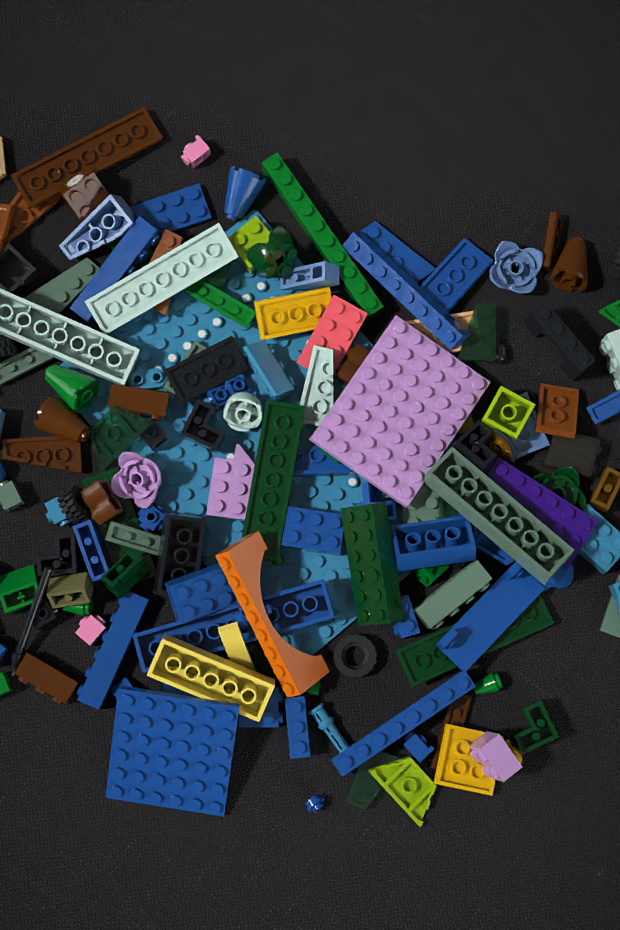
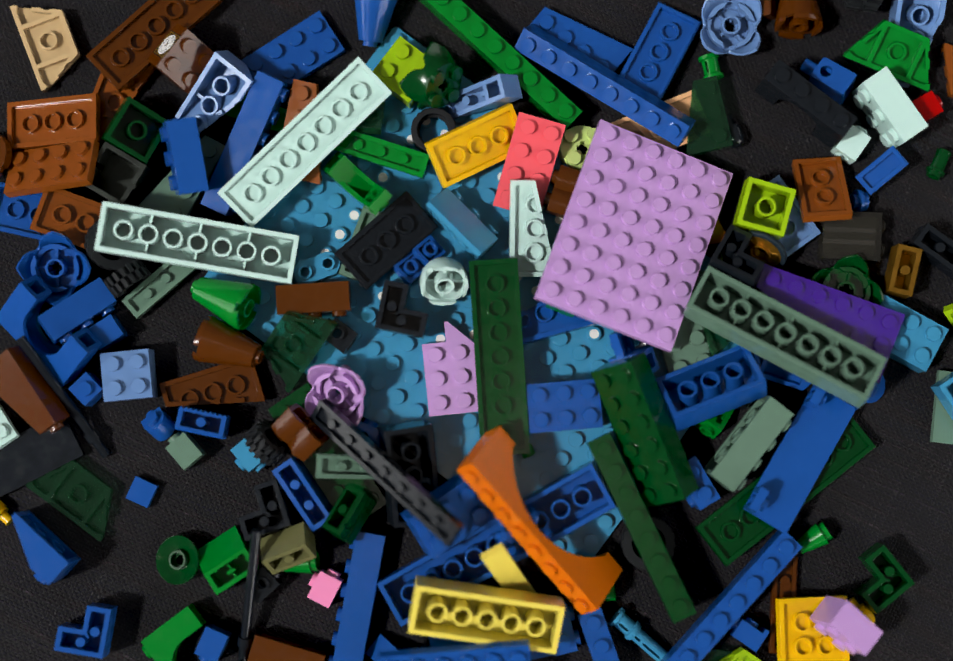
camera: 15 degrees left, 5 degrees up
(28, 477) = (202, 422): none -> blue brick
(34, 240) = (134, 130): none -> dark green brick
(66, 267) = (184, 156): none -> blue brick
(161, 546) = (387, 472): none -> black plate
(194, 320) = (357, 184): none -> green arch
(263, 280) = (424, 115): none -> black tyre
(351, 639) = (641, 527): none -> dark green brick
(371, 327) = (570, 141): none -> yellowish green plate
(493, 295) = (711, 65): none -> green bush
(584, 327) = (830, 78): none -> blue torso
(585, 427) = (859, 200): none -> blue plate
(589, 381) = (851, 144): none -> light aqua brick

